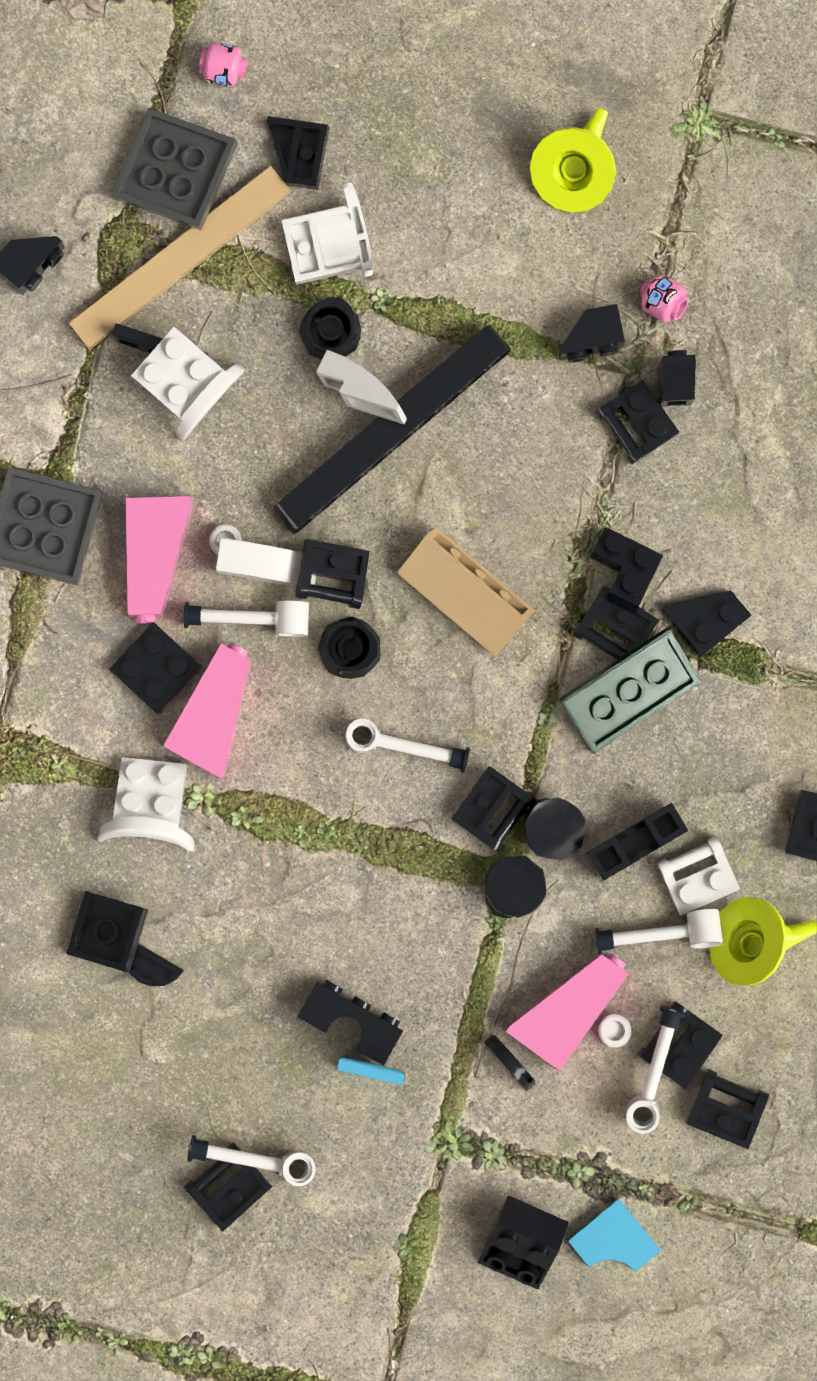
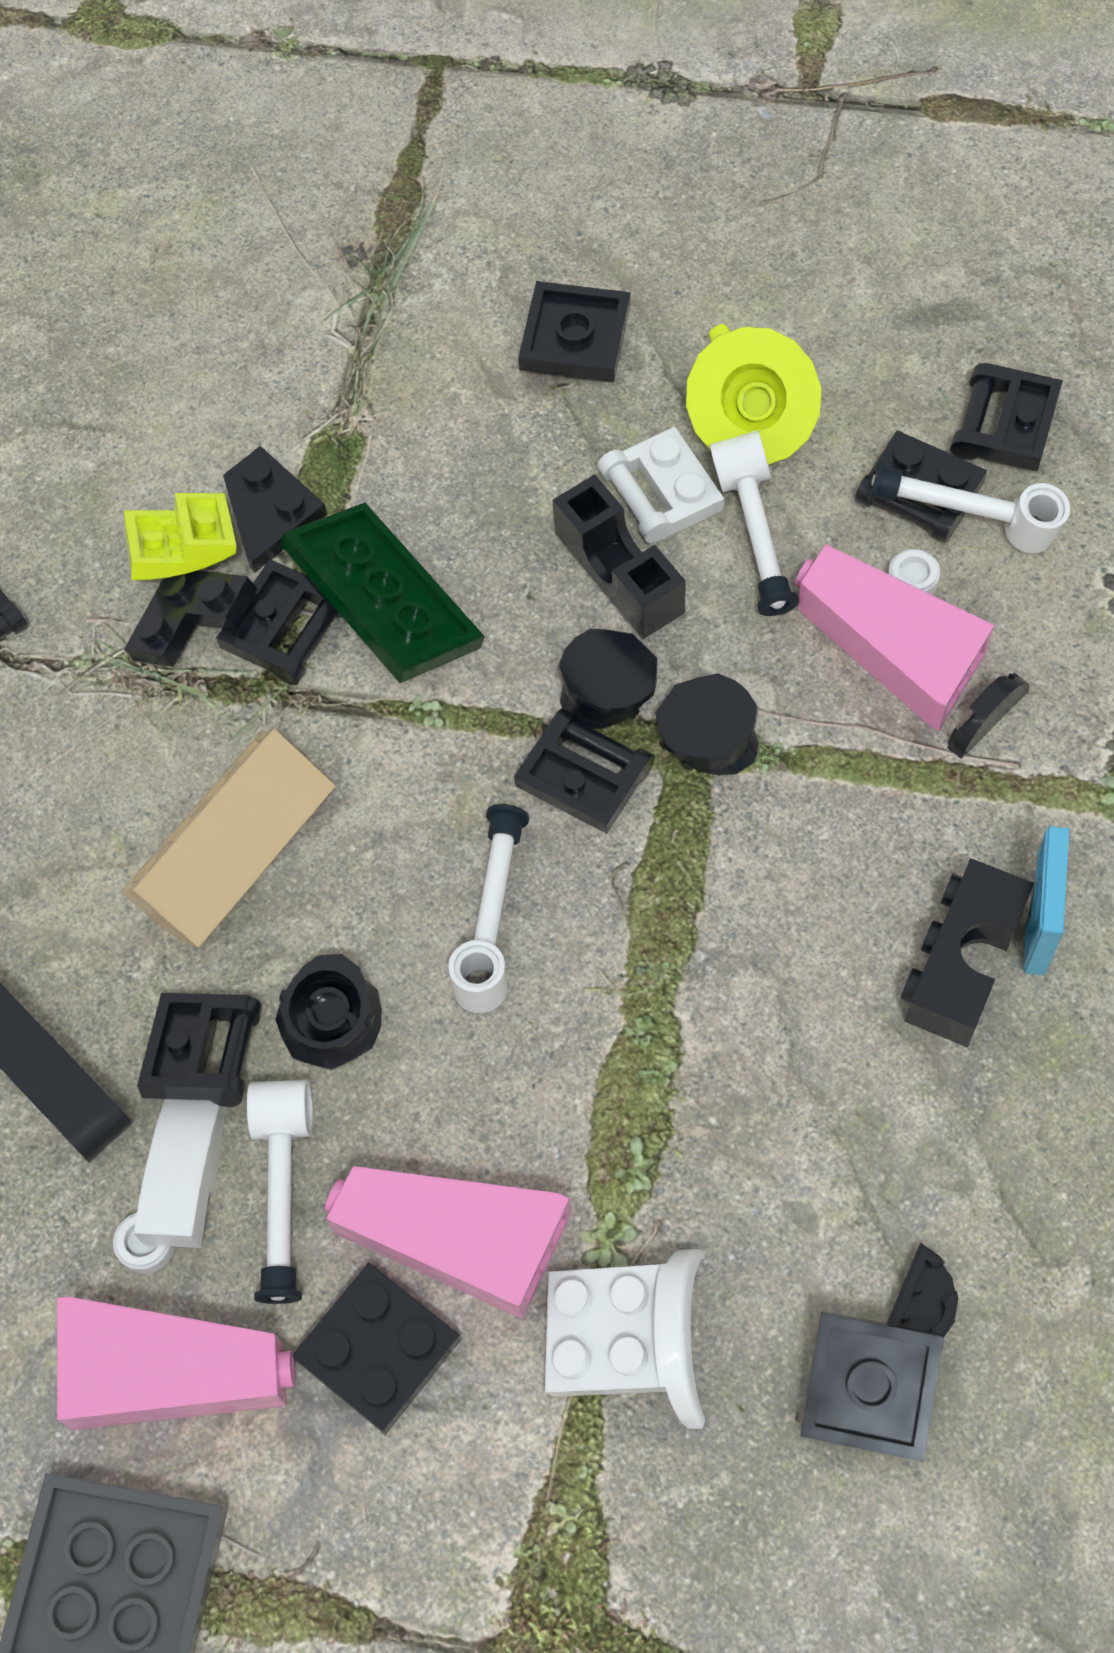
camera: 85 degrees left, 20 degrees down
(681, 562) = (179, 539): none -> neon yellow slope

